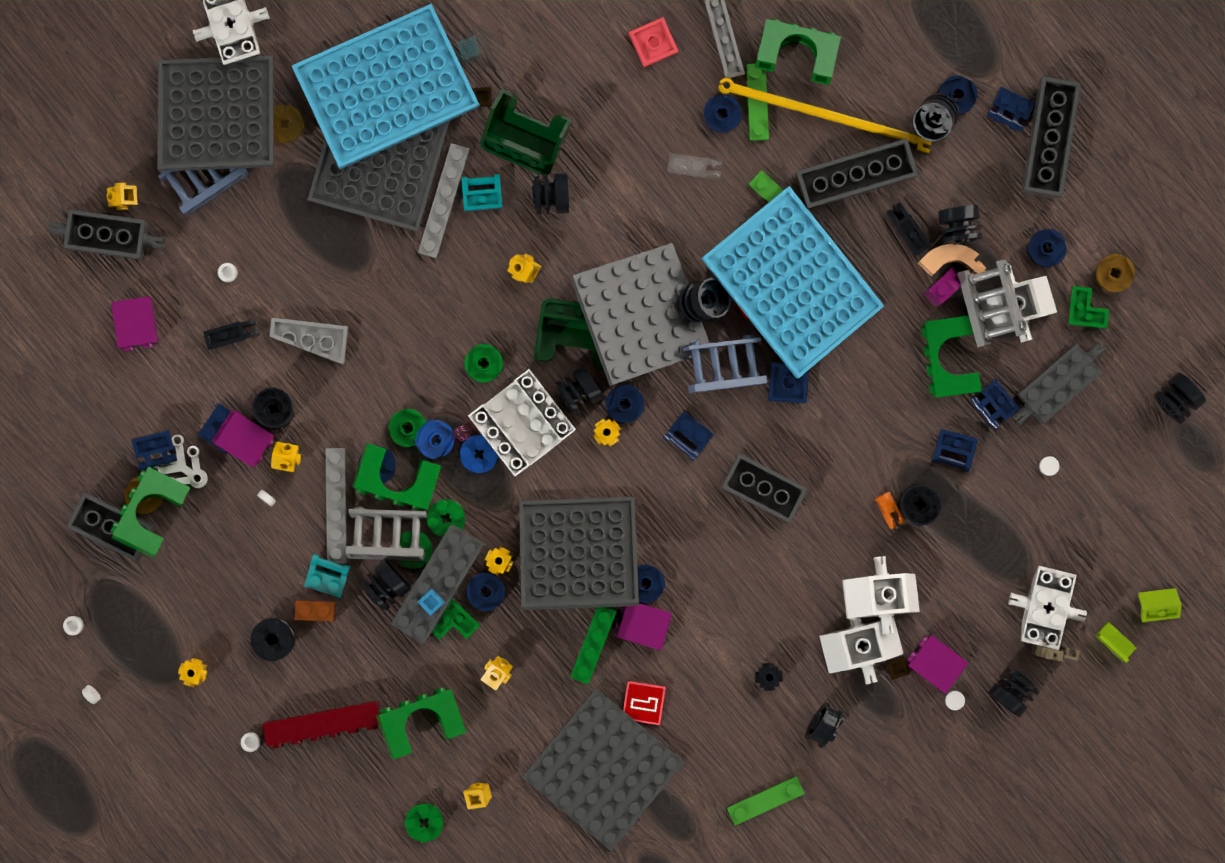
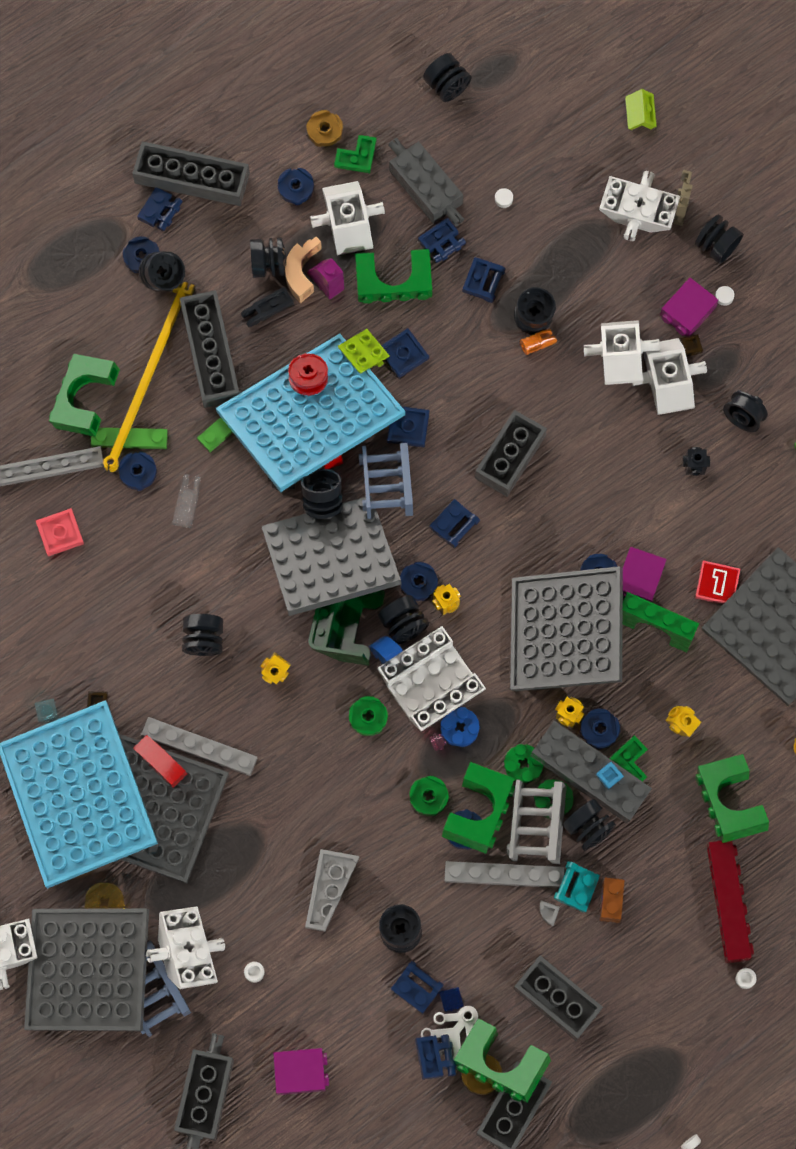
camera: 85 degrees left, 15 degrees down
(122, 196) = (164, 1075): yellow brick -> none
(199, 669) = (666, 1037): yellow brick -> none
(213, 461) = (451, 999): none -> clear blue tile
(217, 563) = (558, 998): none -> dark grey brick
(221, 210) = (185, 948): none -> white slope
(229, 334) = (319, 974): black hinge -> none
(243, 438) = (429, 962): magenta brick -> none
(260, 642) = (640, 934): black wheel -> none
(266, 498) = (492, 944): white tile -> none
(285, 457) = (451, 920): yellow brick -> none
(302, 550) = (548, 912): none -> light grey tile
(422, 163) = (160, 761): none -> slope
(424, 439) = (436, 774): blue plate -> none
(482, 199) = (200, 707): teal plate -> none
(522, 137) = (144, 660): dark green windscreen -> none
(547, 375) = (385, 649): none -> blue slope
(822, 282) = (308, 374): none -> red wheel
(864, 331) = (363, 351): none -> lime hinge
(867, 372) = (404, 353): none -> dark blue plate
(974, 298) = (339, 248): light grey fence -> none
(1115, 641) = (674, 150): lime panel -> none

